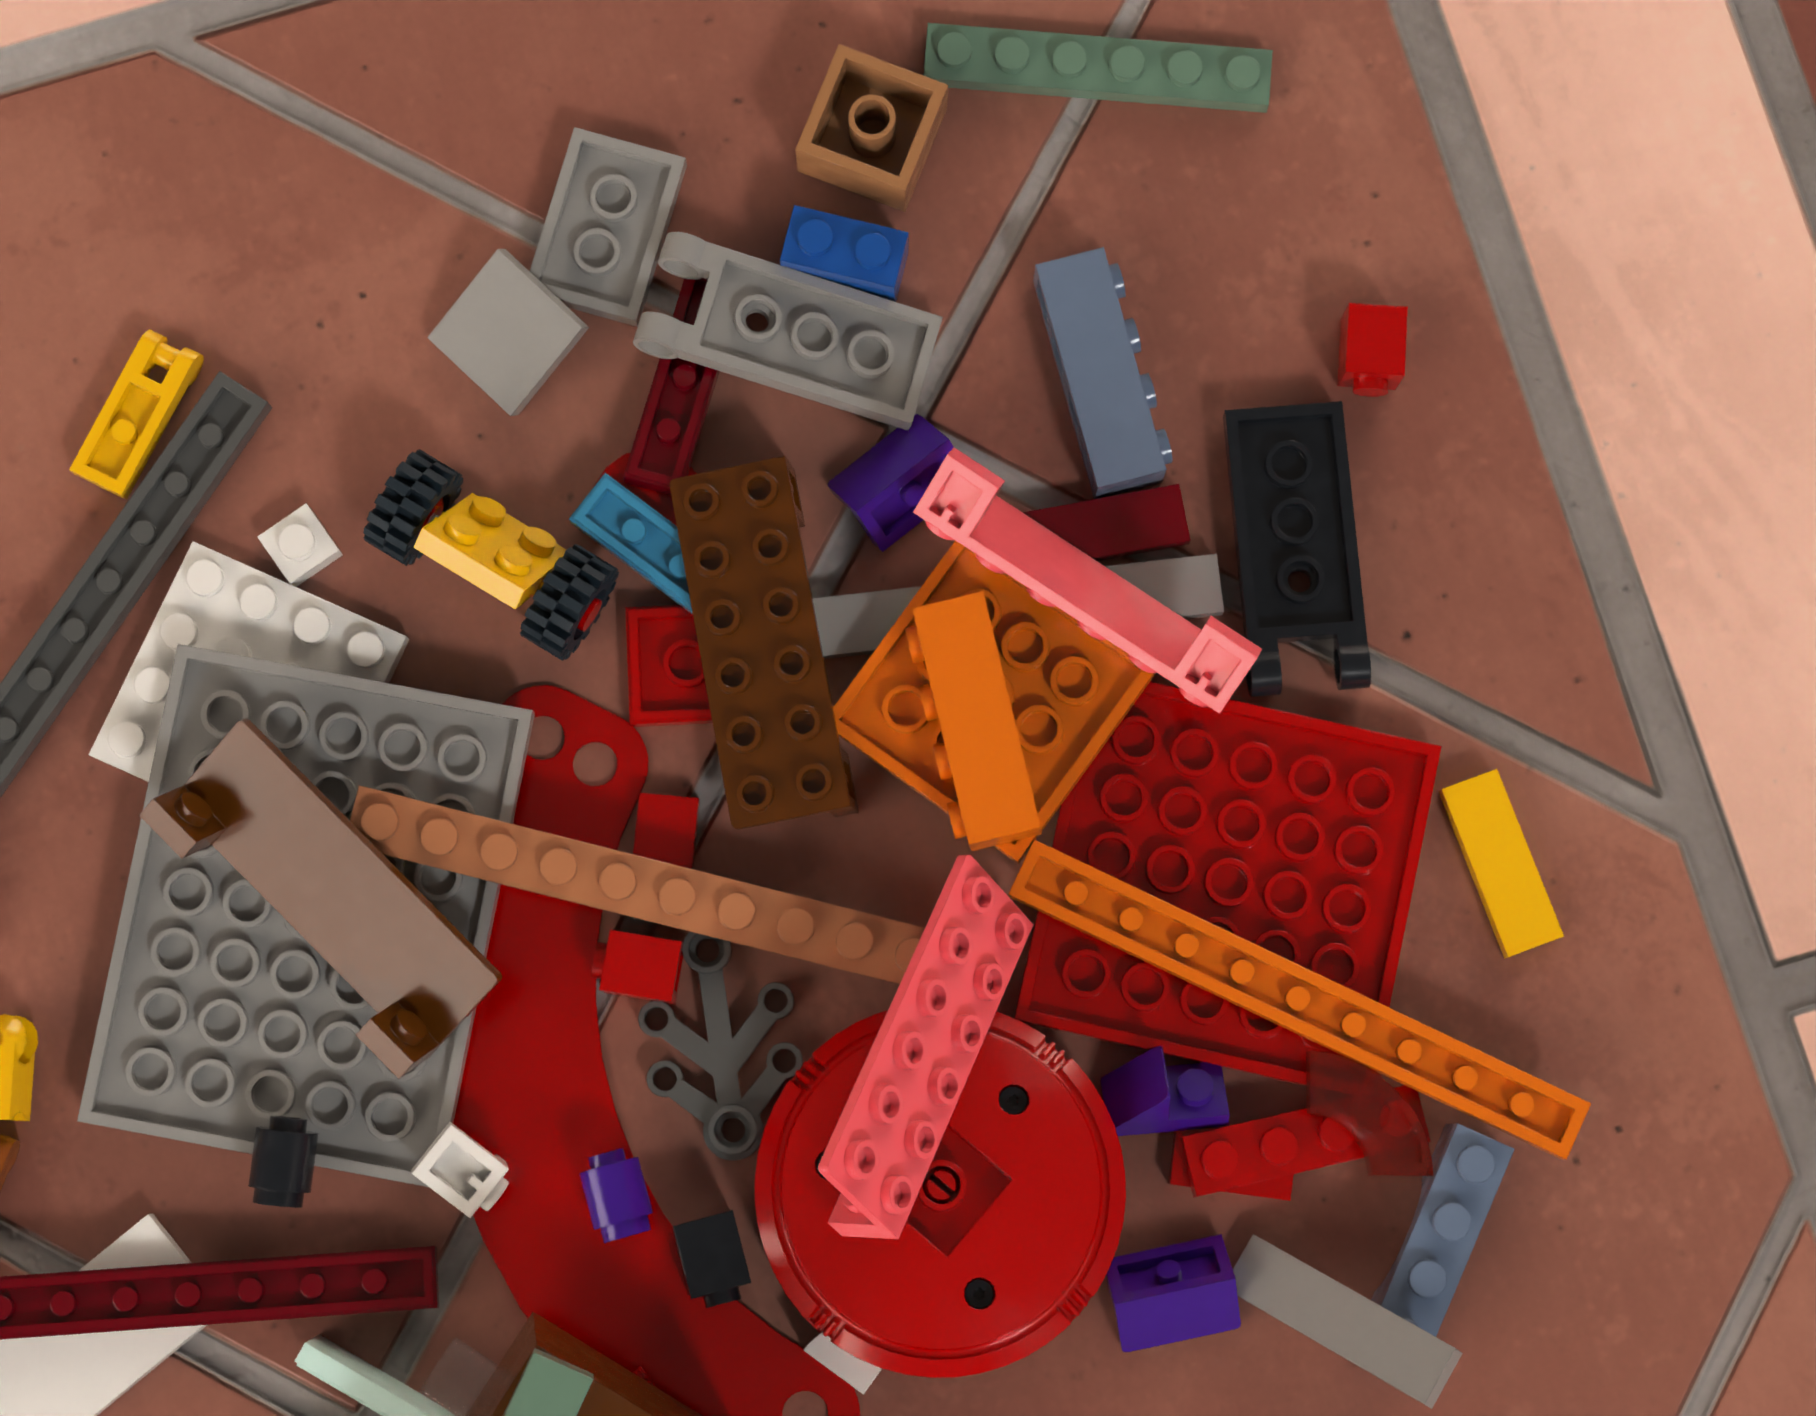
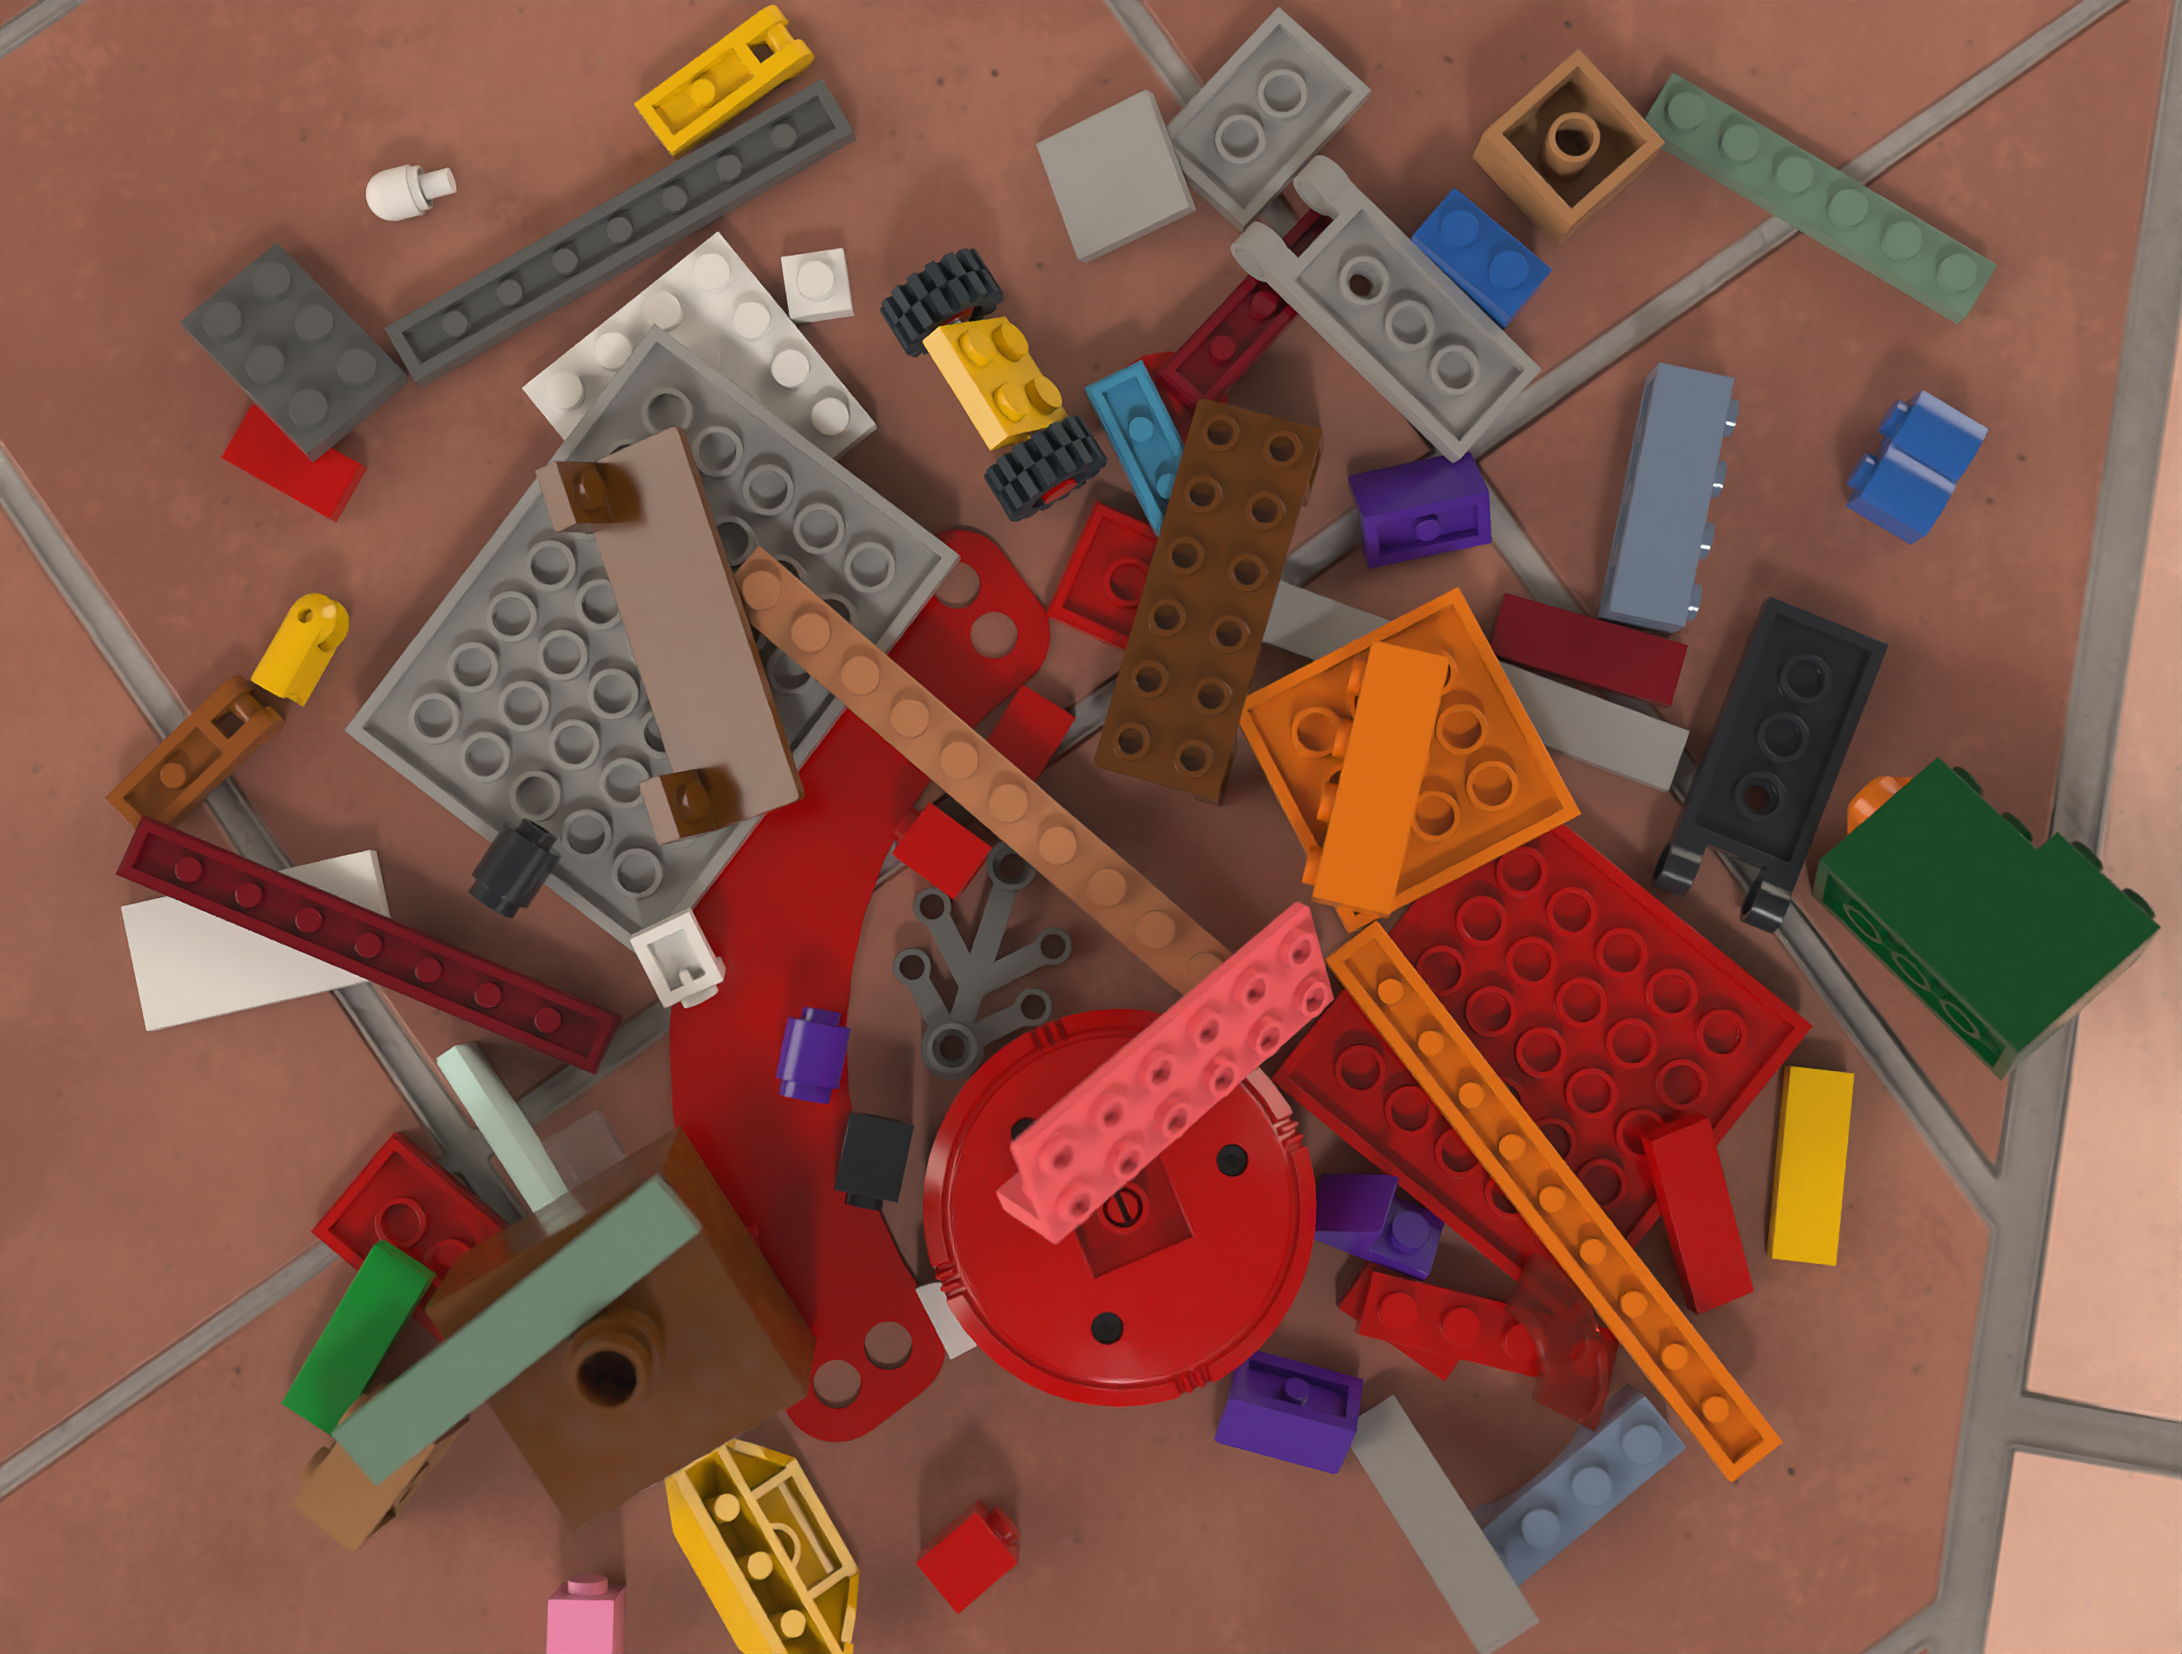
camera: 30 degrees right, 5 degrees up
(966, 508) = (1625, 835): coral bracket -> none
(1289, 245) = (1915, 466): none -> blue brick
(1372, 348) = (1944, 607): red brick -> none
(1426, 950) = (1697, 1213): none -> red tile
(1522, 588) = (1975, 915): none -> dark green piece

